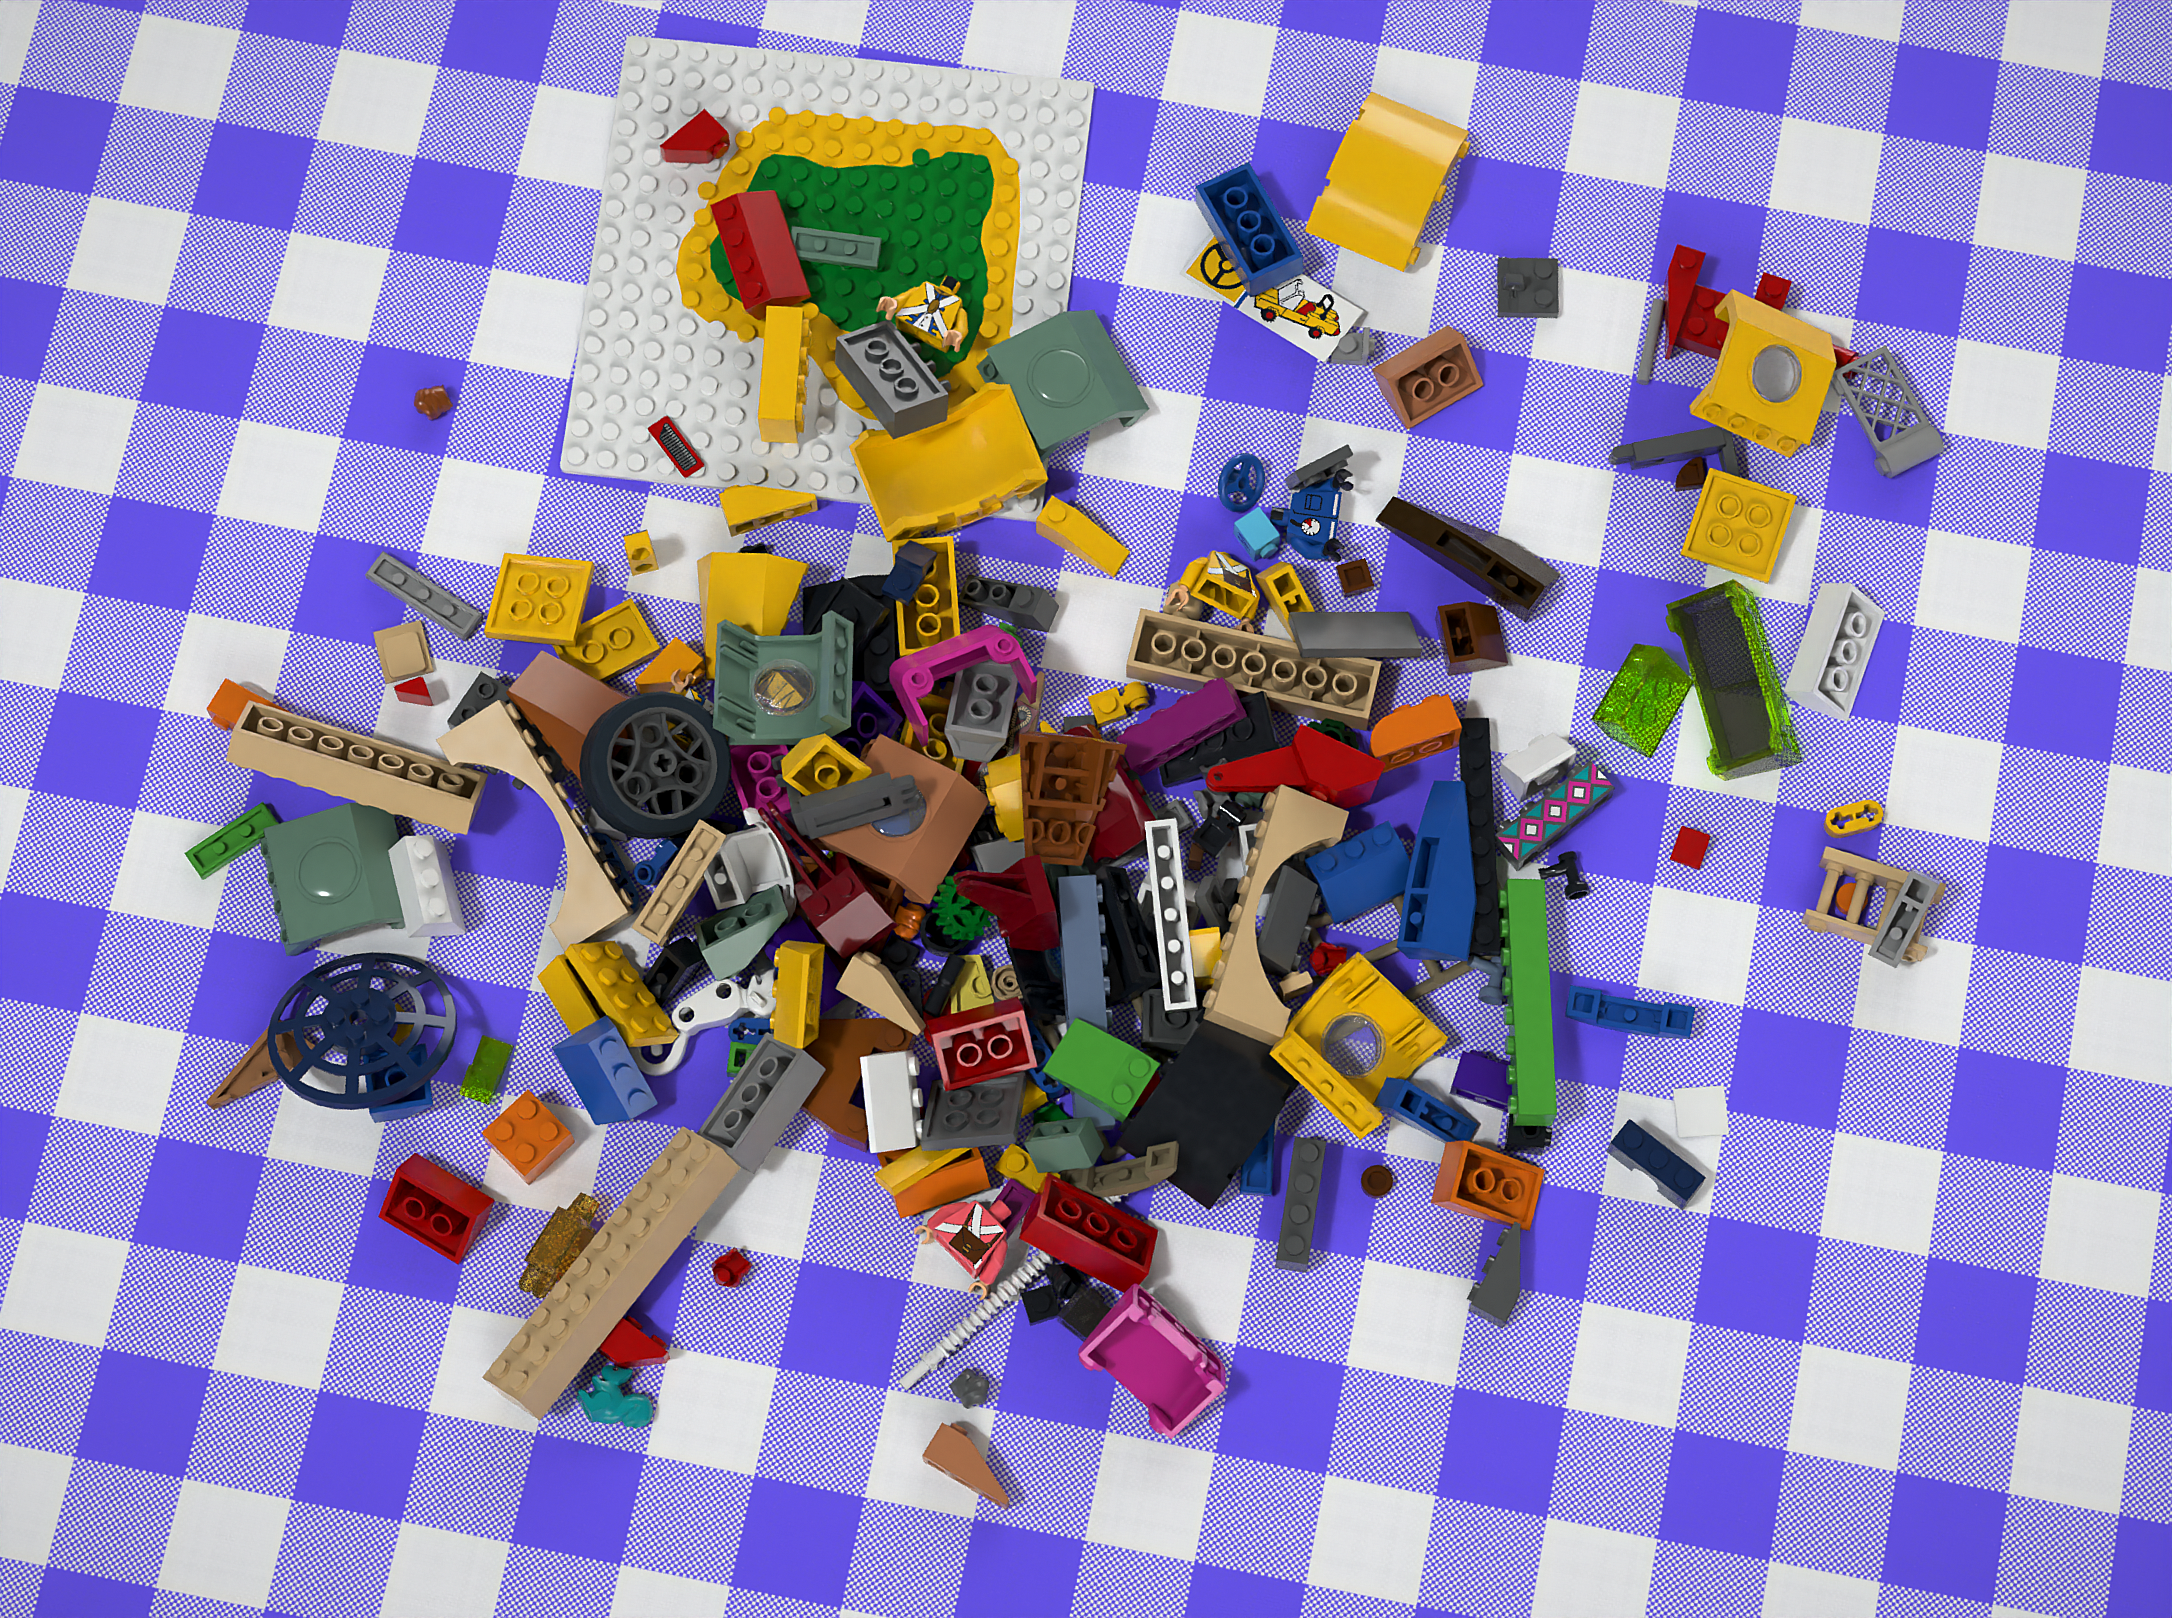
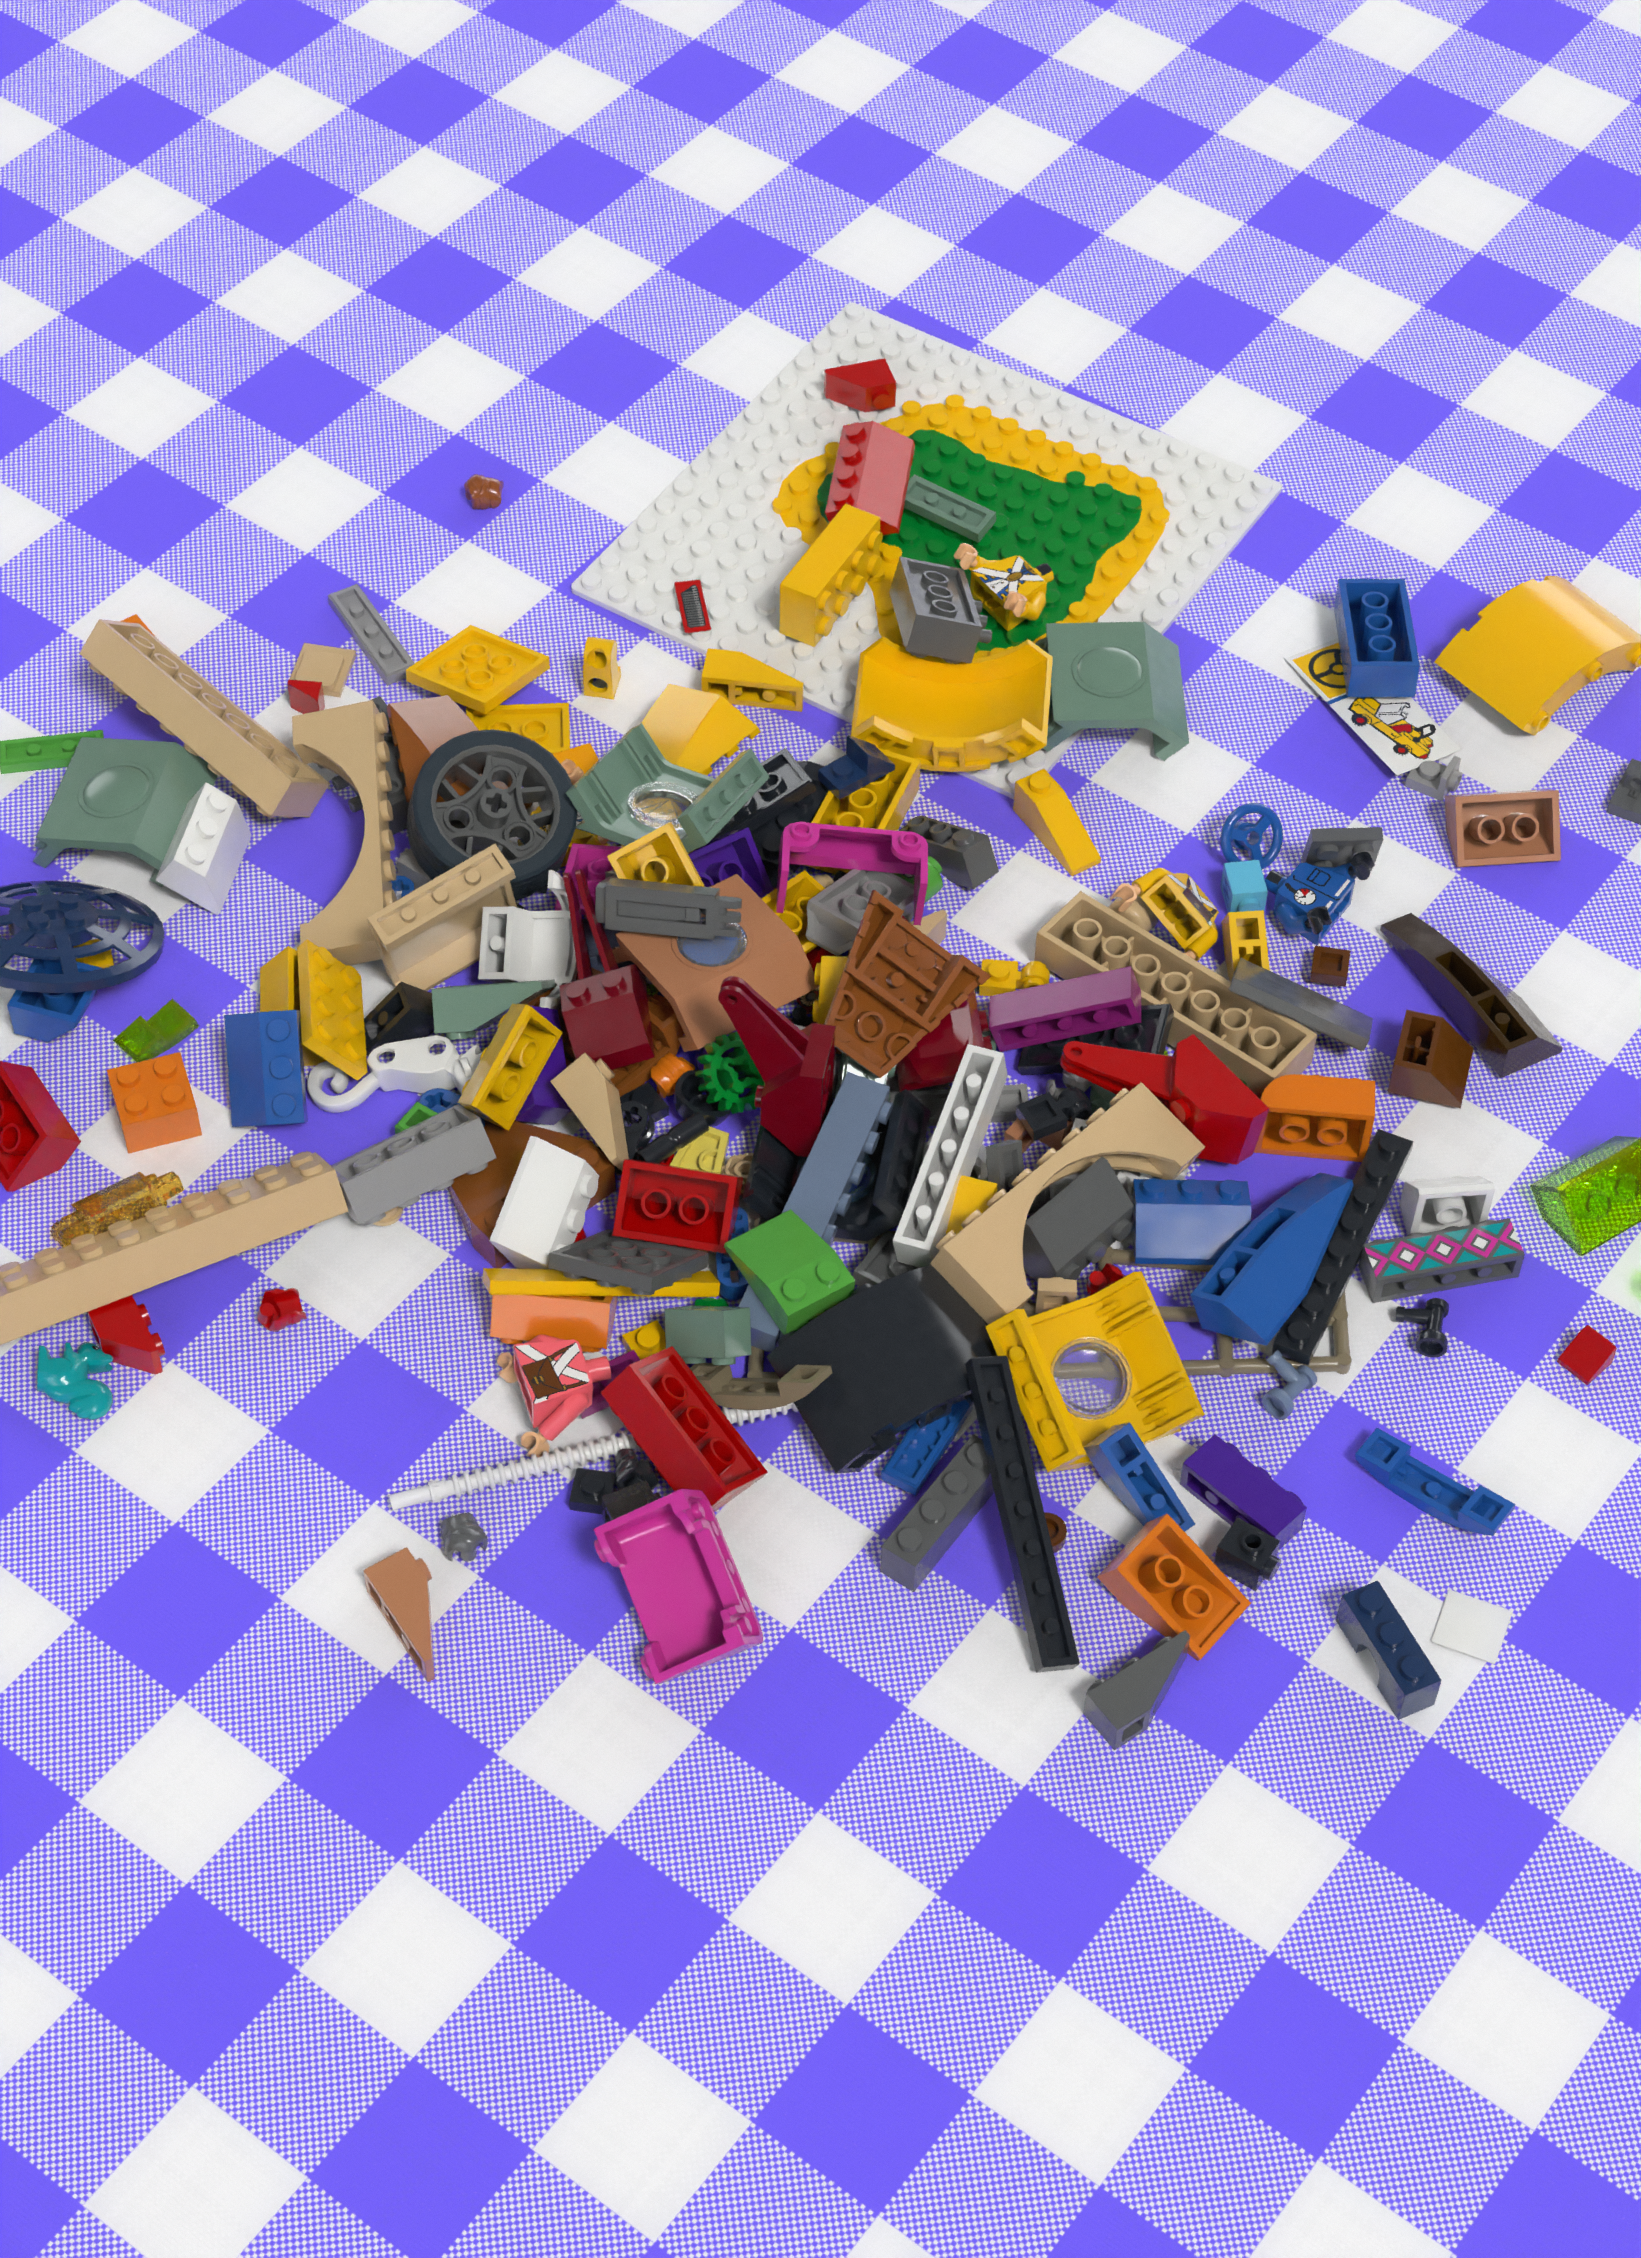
camera: 25 degrees right, 20 degrees down
(1360, 1184) = (1022, 1514): none -> black plate
(1528, 1002) = (1315, 1416): bright green brick -> none

